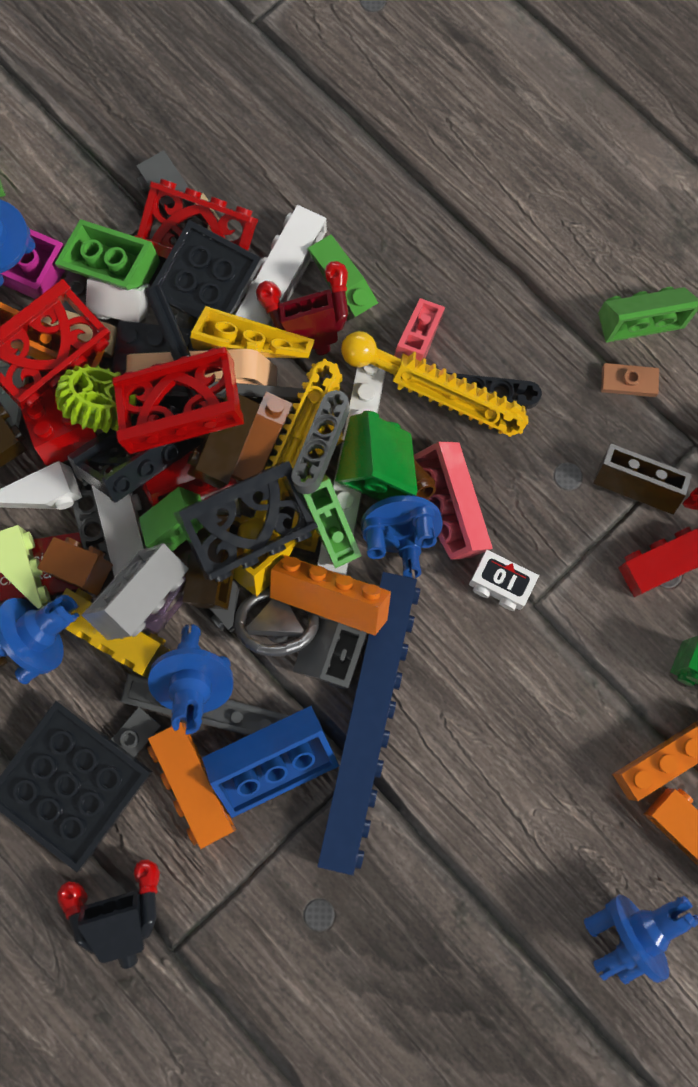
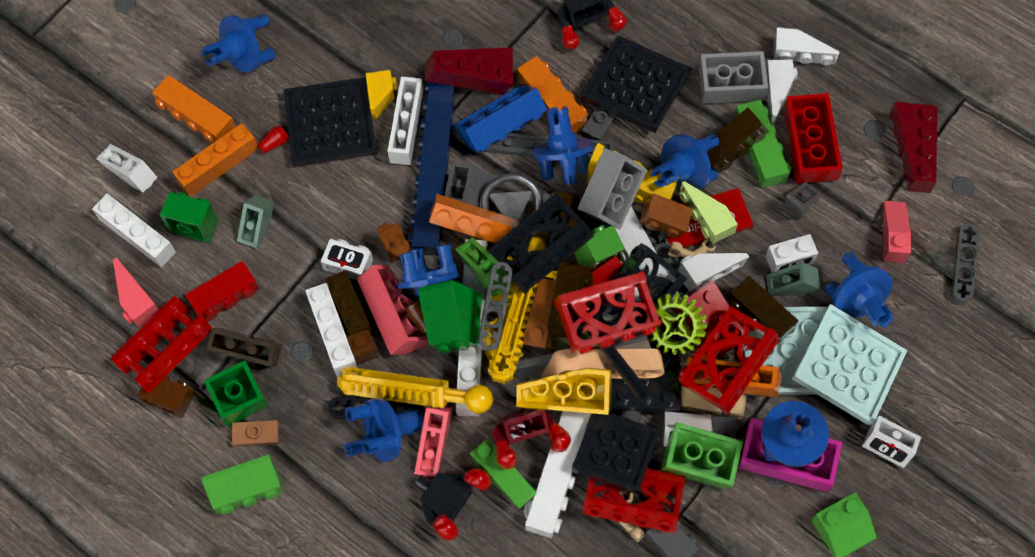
camera: 175 degrees right, 10 degrees down
(53, 516) = (677, 250): none -> tan arm
(289, 836) = (473, 69): none -> dark red wedge
(403, 774) = (405, 120): none -> white brick
(413, 266) = (446, 497): none -> black torso
(435, 833) = (380, 91): none -> yellow slope
(439, 588) = (393, 240): none -> dark orange hips
(479, 344) = (381, 428): none -> blue piece
(493, 459) = (362, 347): none -> reddish brown brick
(506, 513) = (348, 303): none -> dark brown brick
(511, 797) = (329, 121): none -> black plate
(530, 487) = (330, 328): none -> white brick
(590, 780) = (273, 139): none -> red cone
(622, 657) = (254, 220): none -> sand green slope
(654, 420) = (235, 393): none -> green brick

